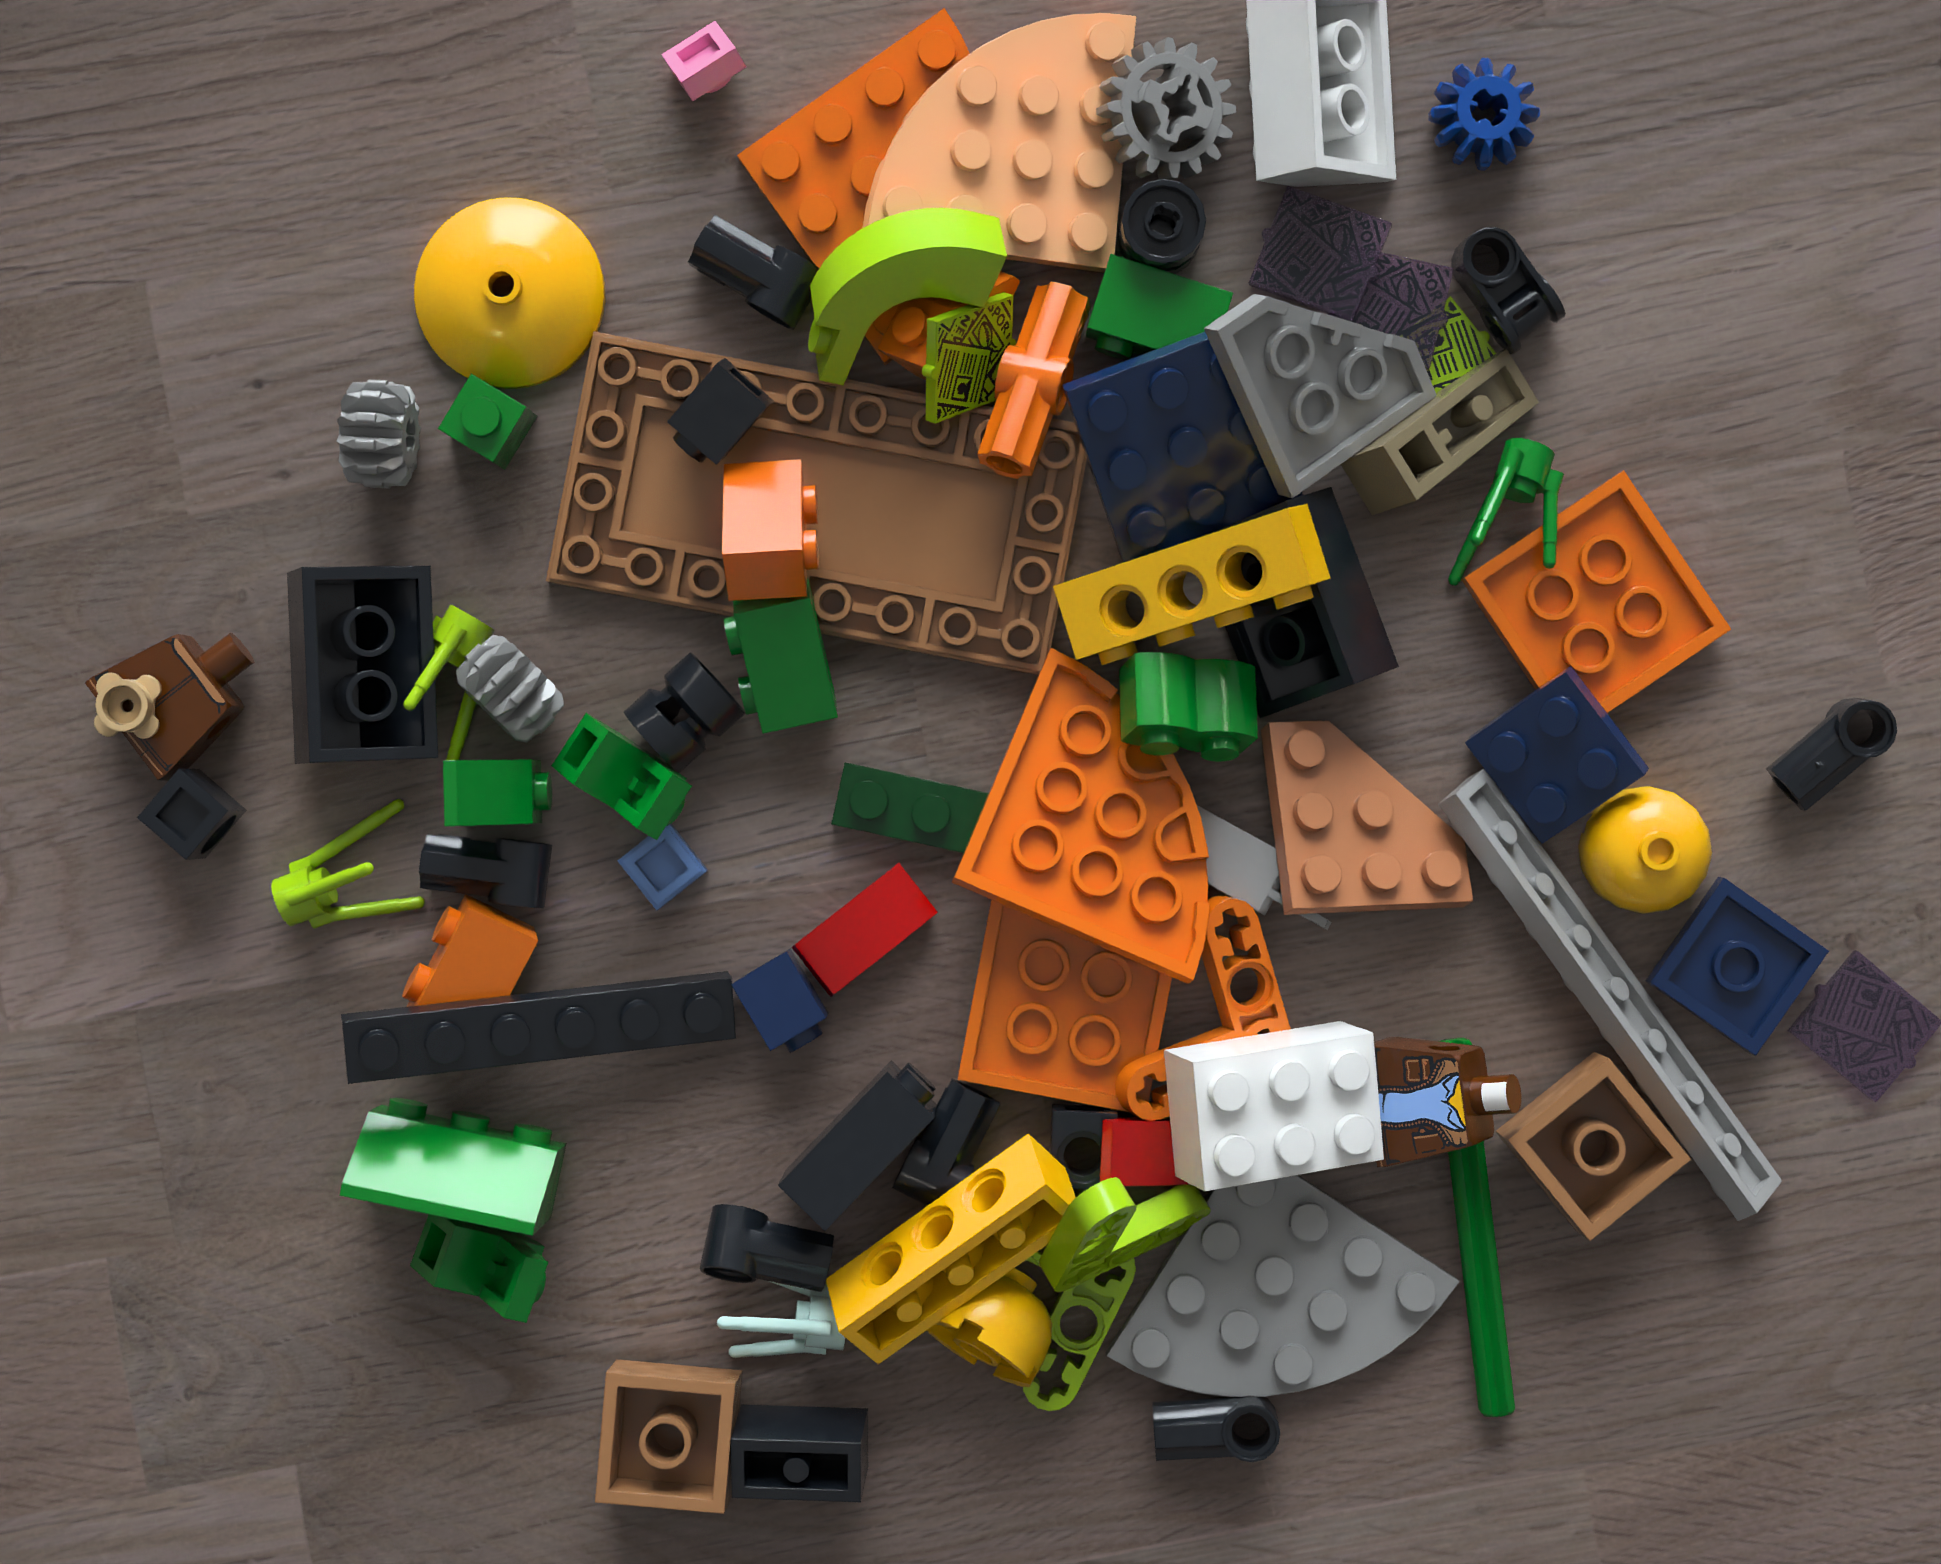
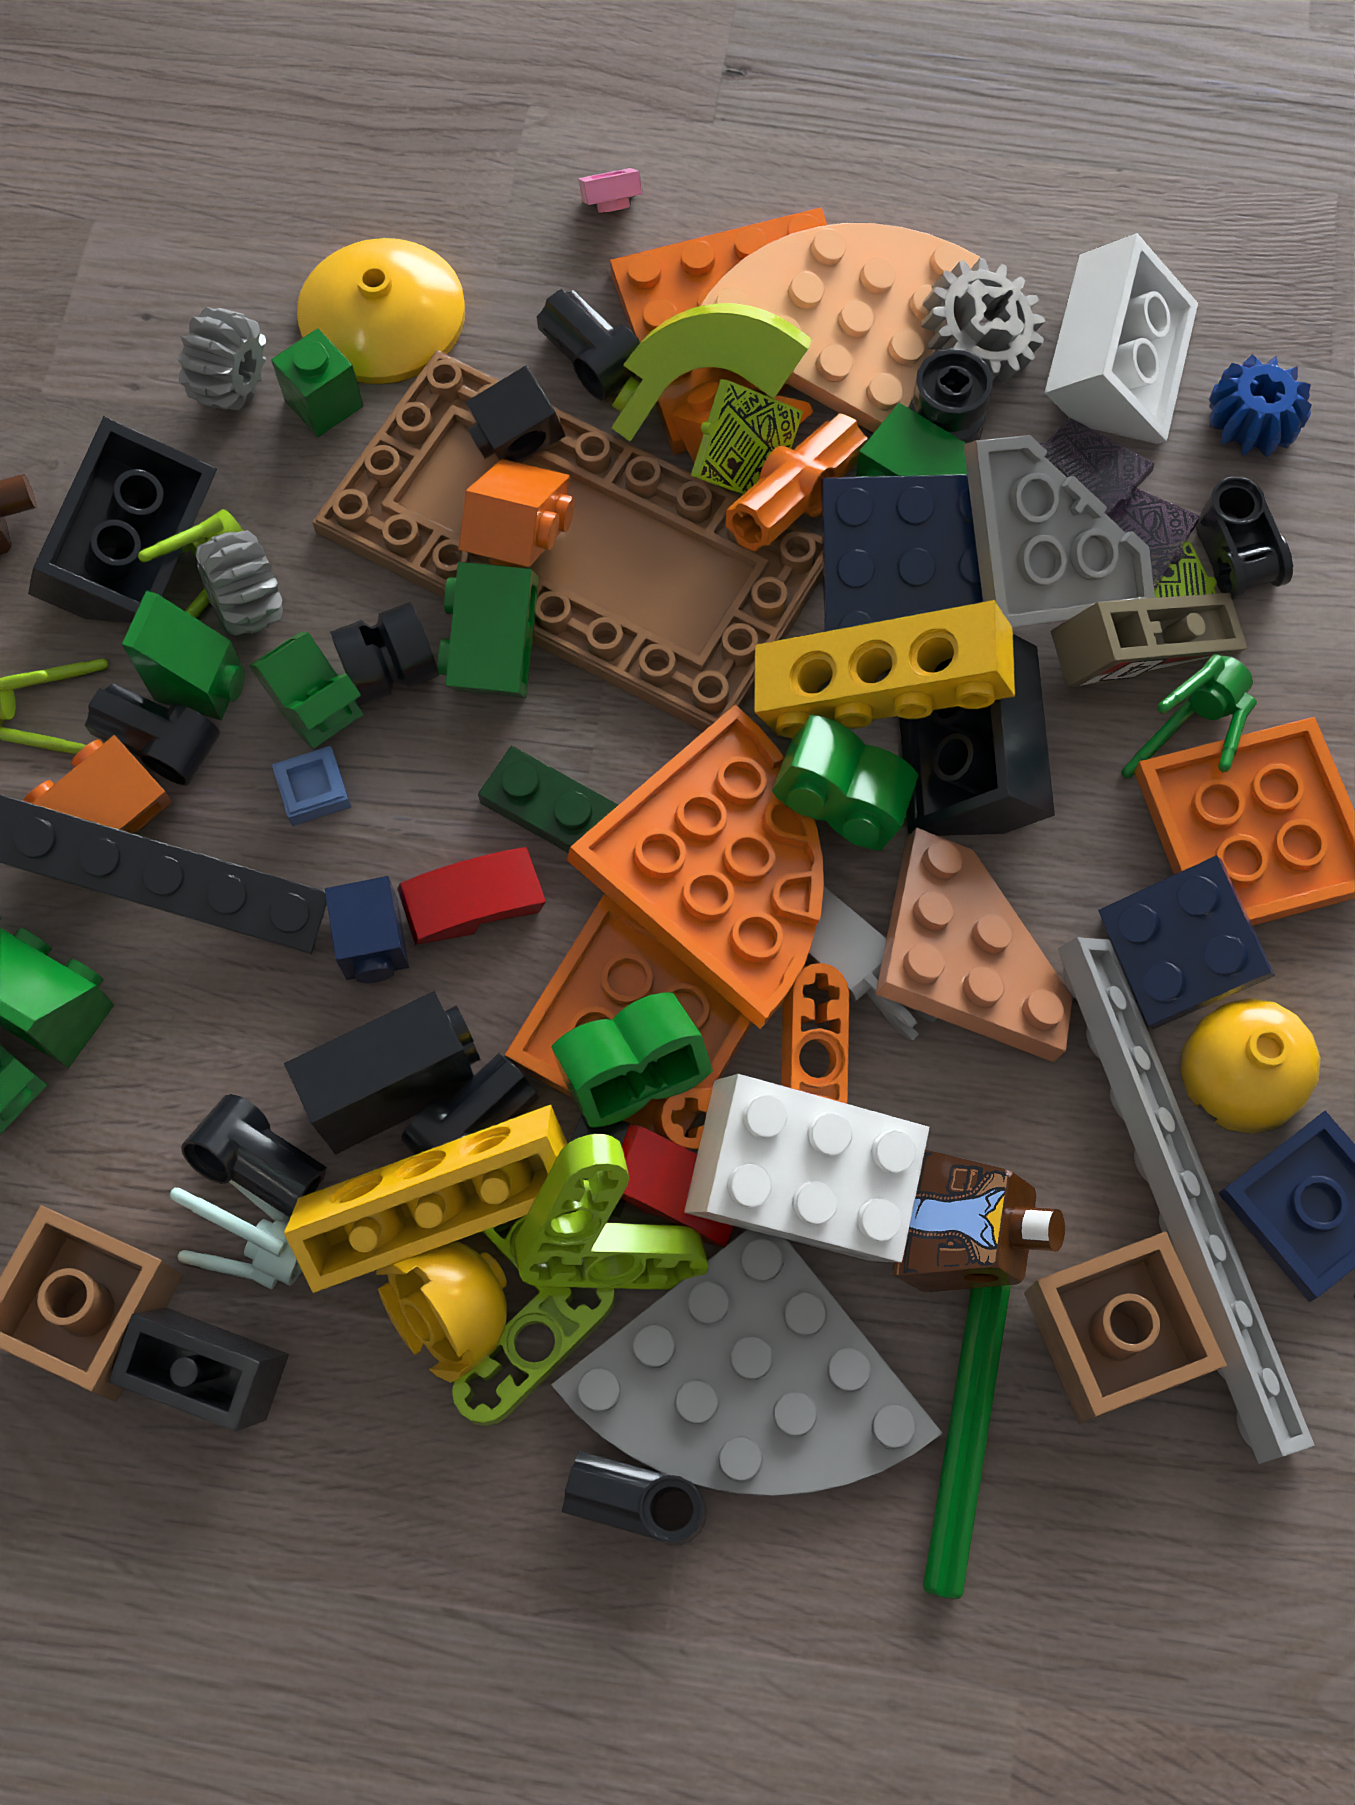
camera: 20 degrees right, 20 degrees down
(1082, 1059) = (633, 1058): none -> green brick

